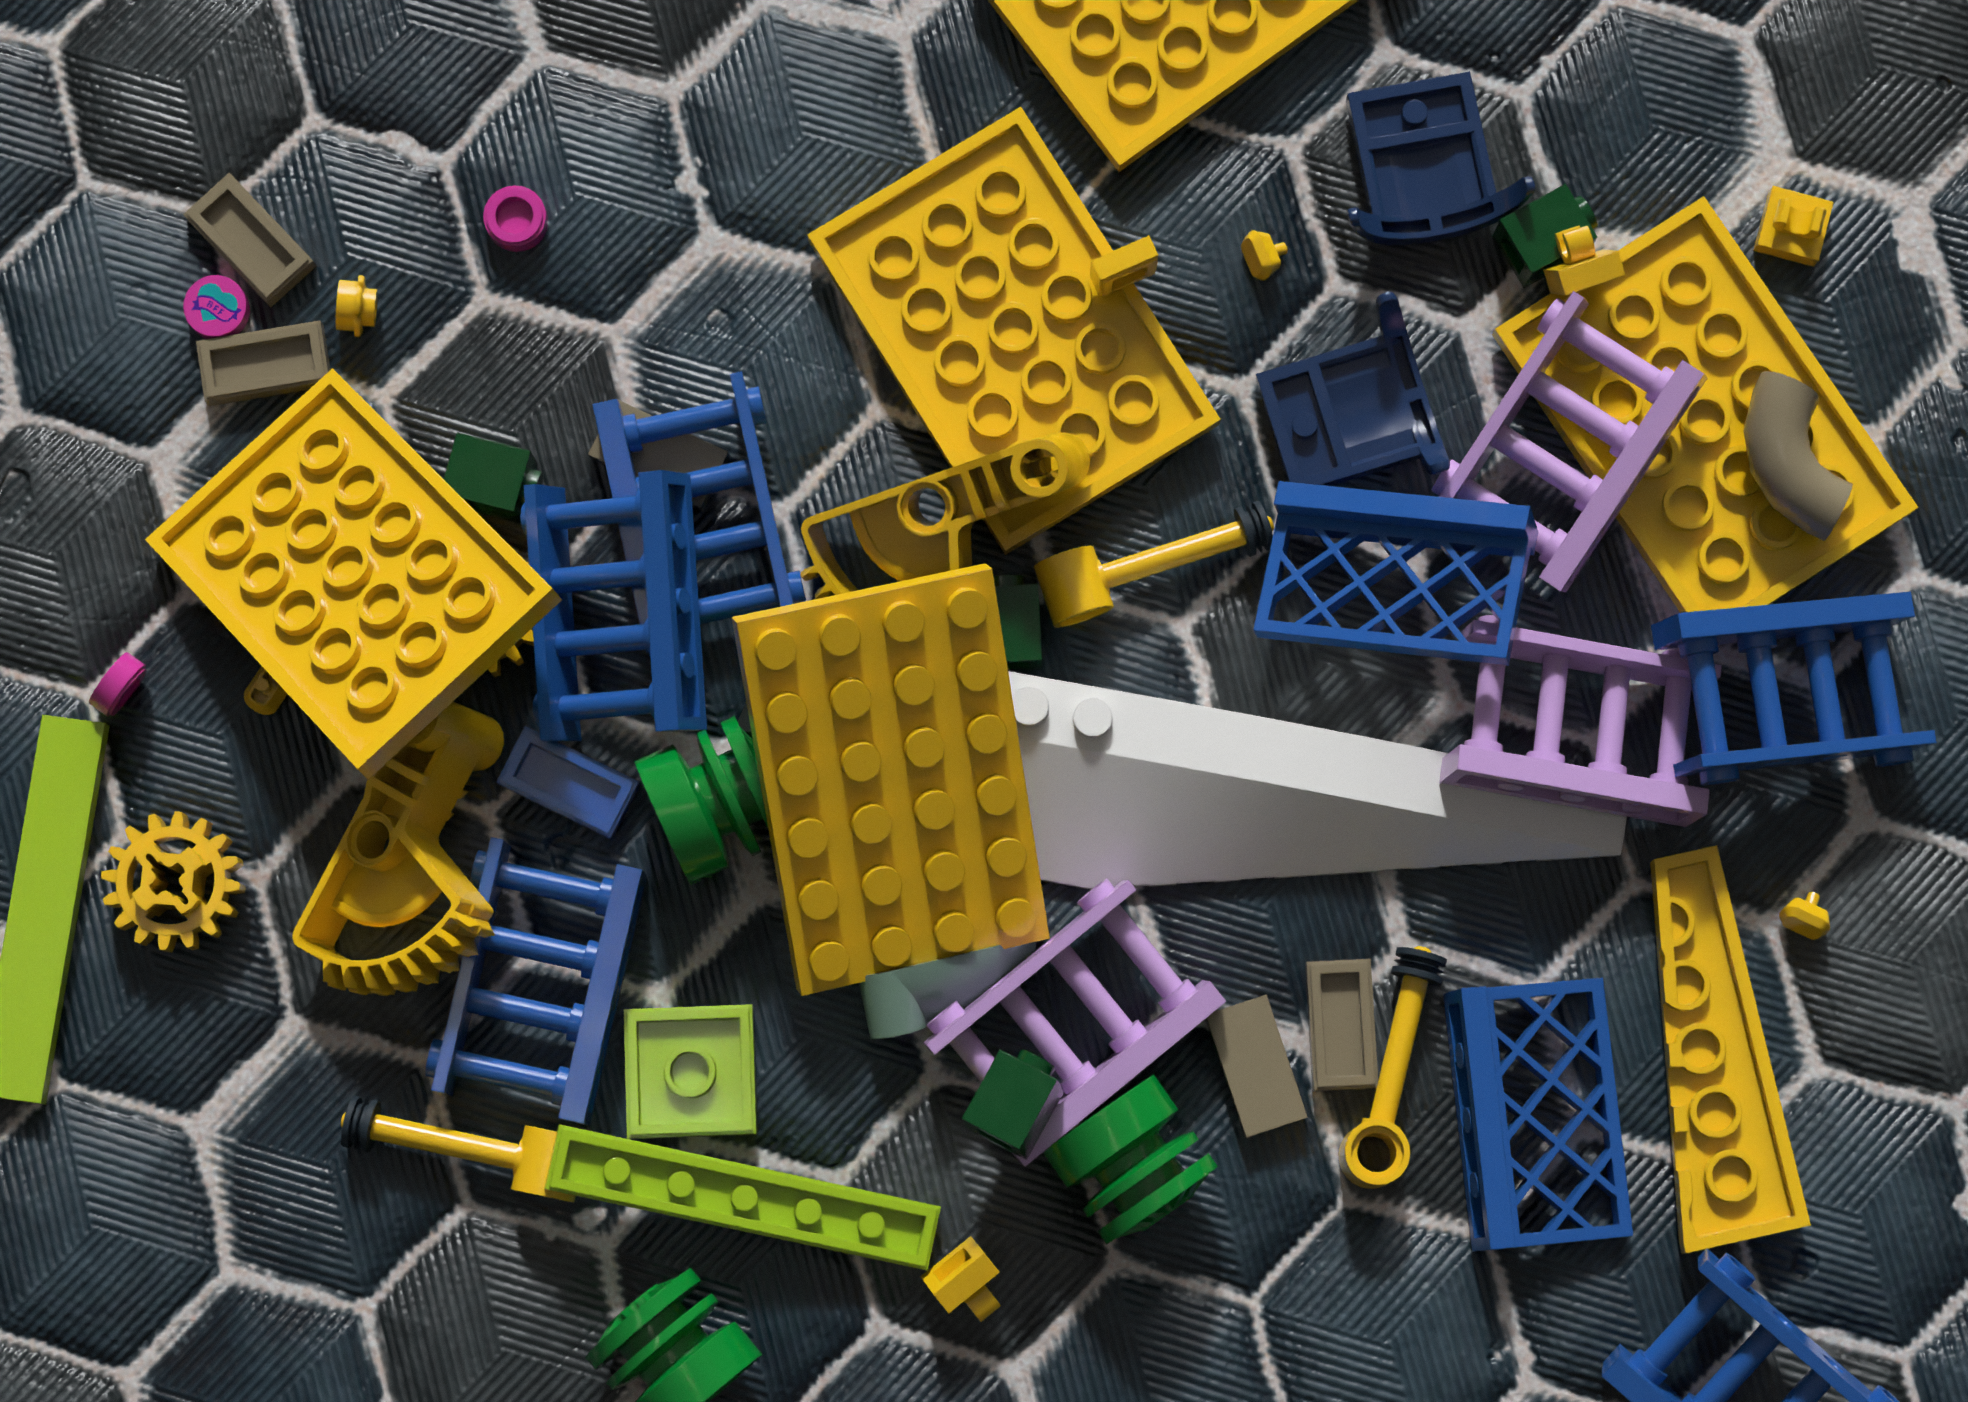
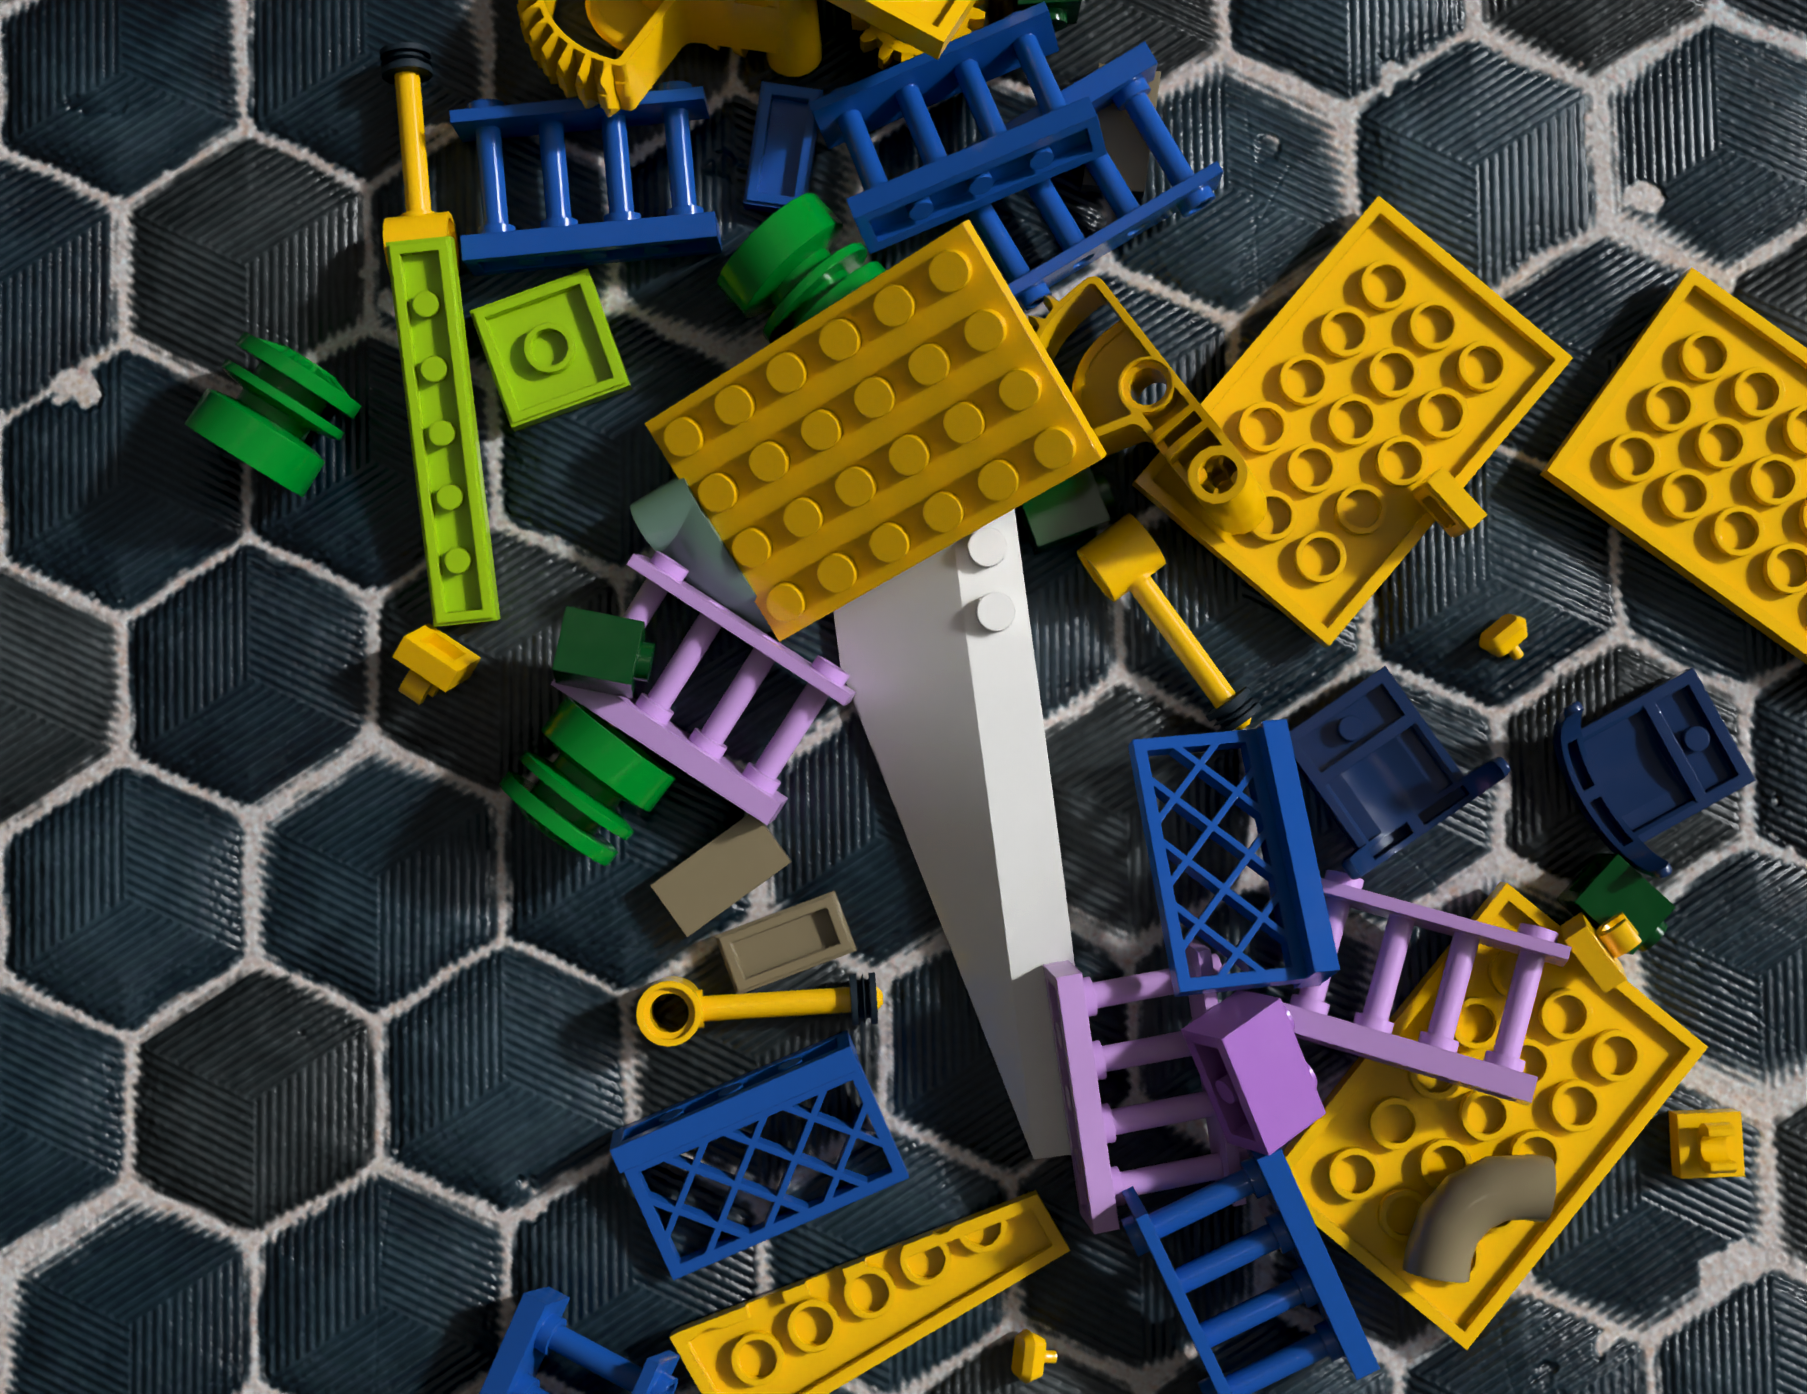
camera: 70 degrees right, 5 degrees up
(1599, 615) = (1254, 1071): none -> medium lavender brick

